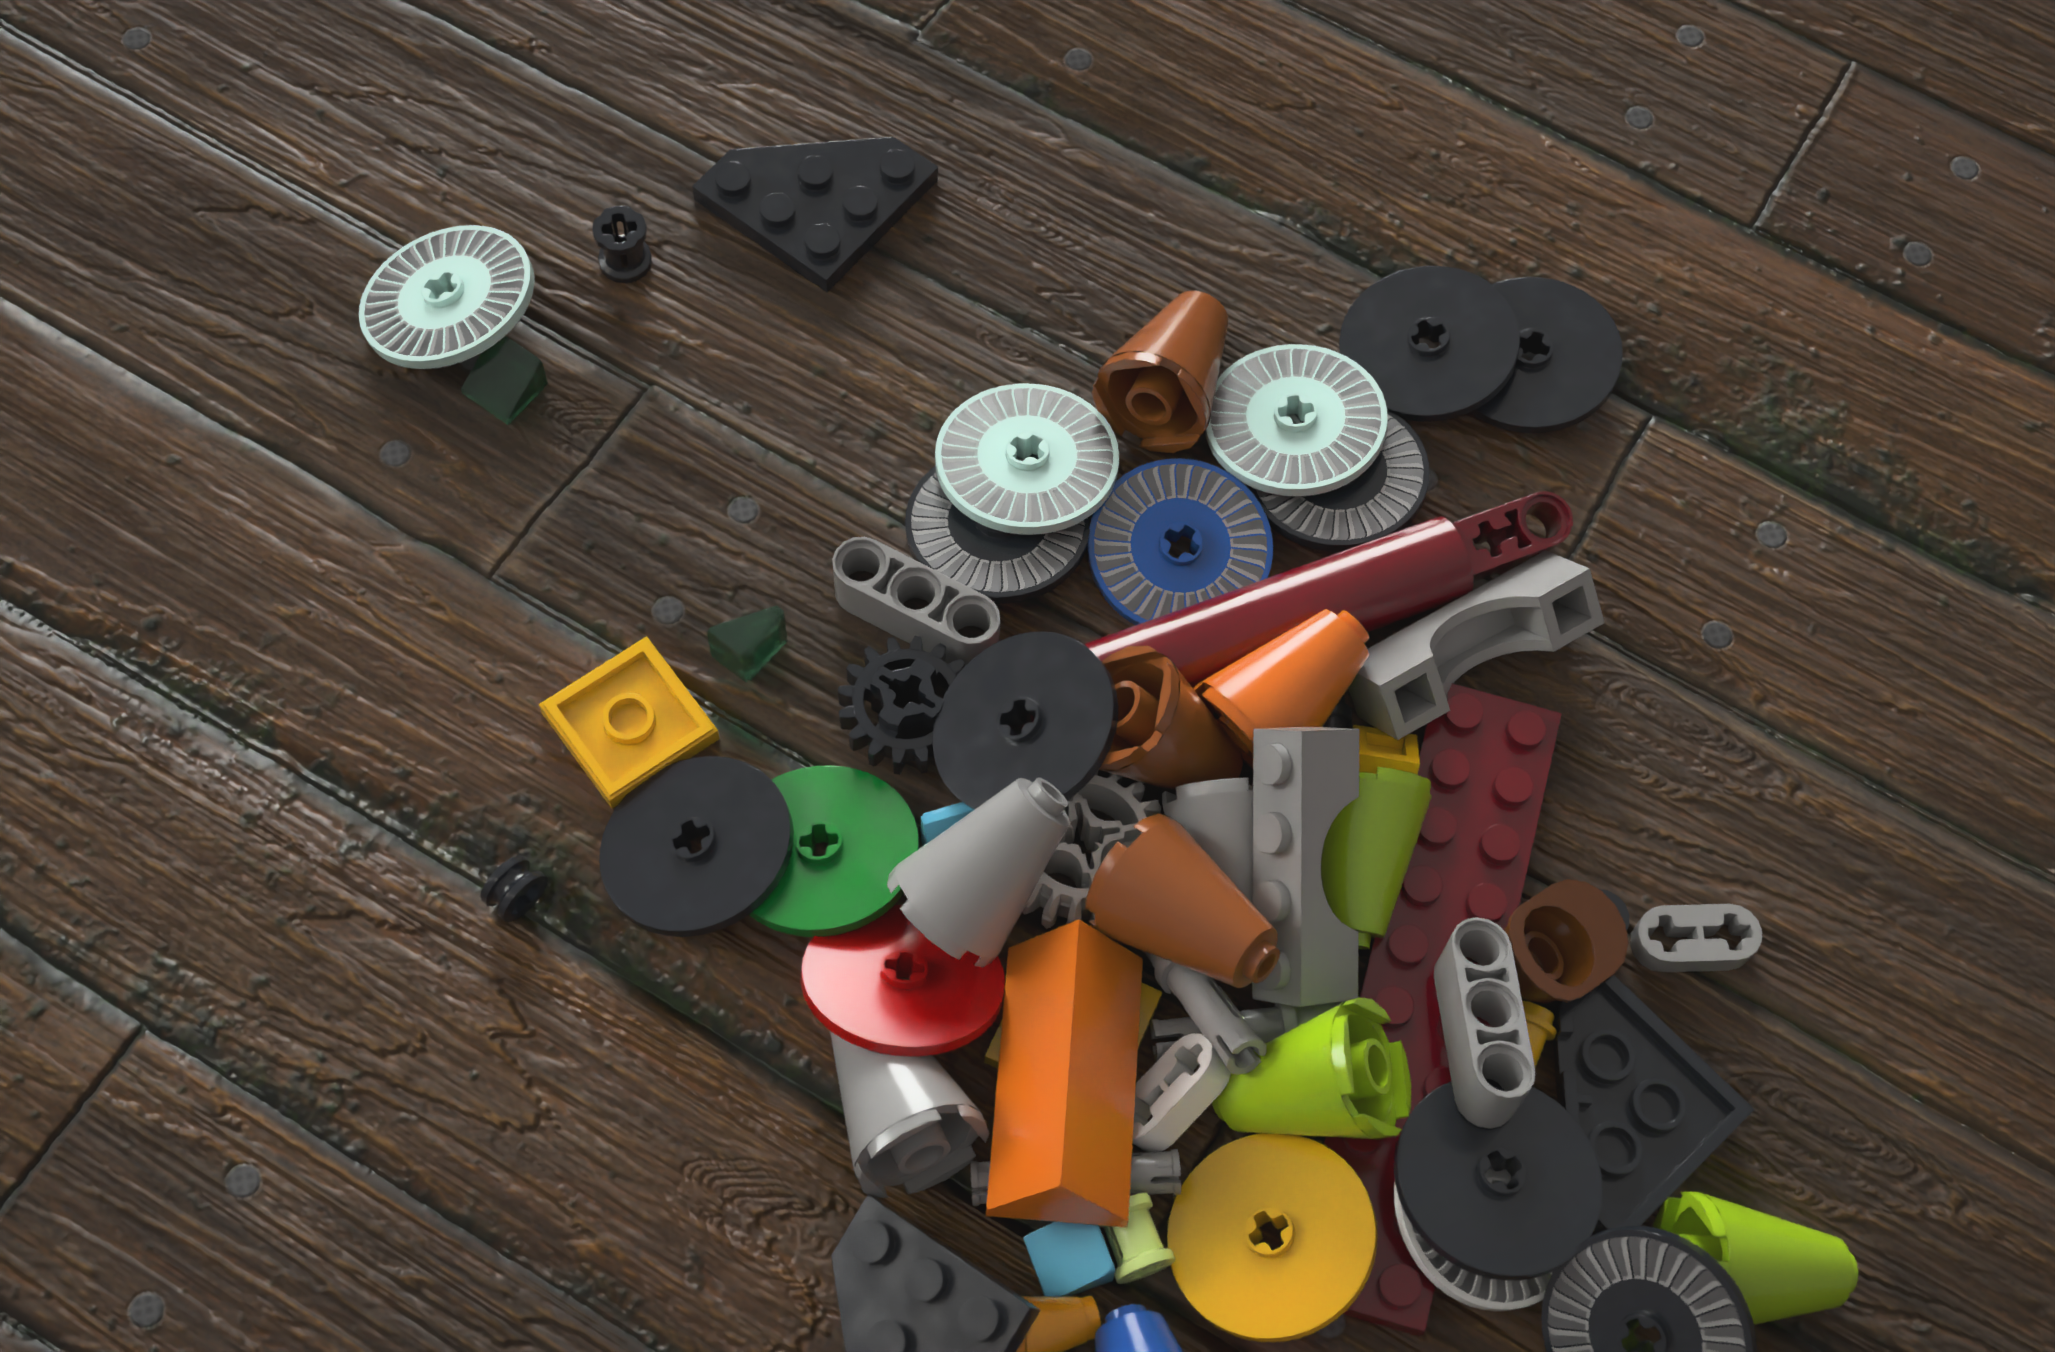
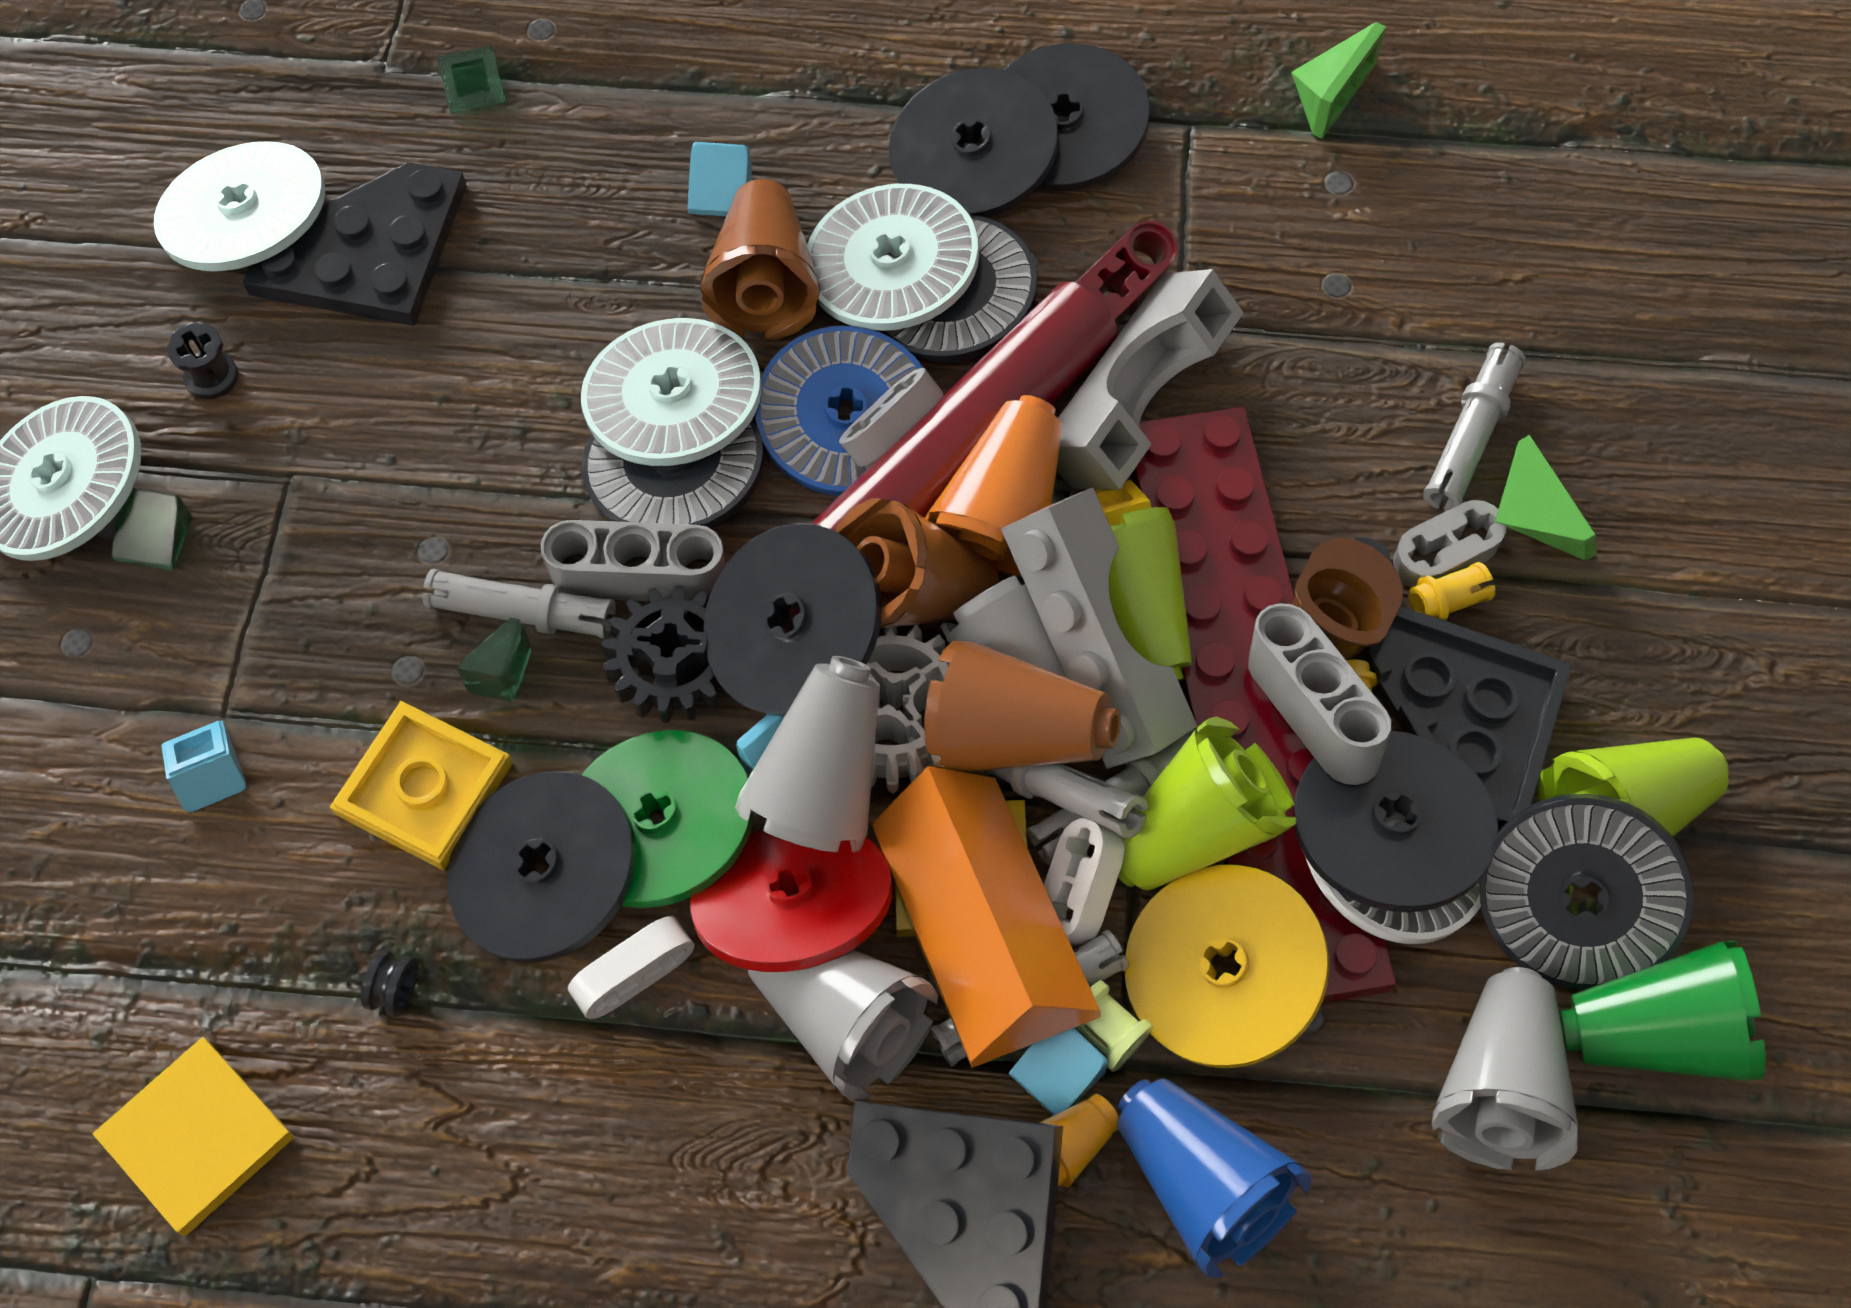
camera: 20 degrees left, 0 degrees up
(284, 943) = (193, 1136): none -> yellow tile
(448, 616) = (203, 766): none -> medium azure slope
(723, 113) = (239, 206): none -> piece
(730, 975) = (630, 967): none -> white beam
(812, 608) = (544, 607): none -> light grey pin
(989, 81) = (471, 79): none -> clear green slope
(1169, 270) = (715, 176): none -> medium azure slope
(1216, 573) = (891, 417): none -> light grey beam
(1672, 984) = (1451, 592): none -> yellow pin
(1799, 818) = (1483, 406): none -> light grey pin
(1802, 943) = (1541, 506): none -> bright green slope
(1820, 428) = (1335, 76): none -> bright green slope

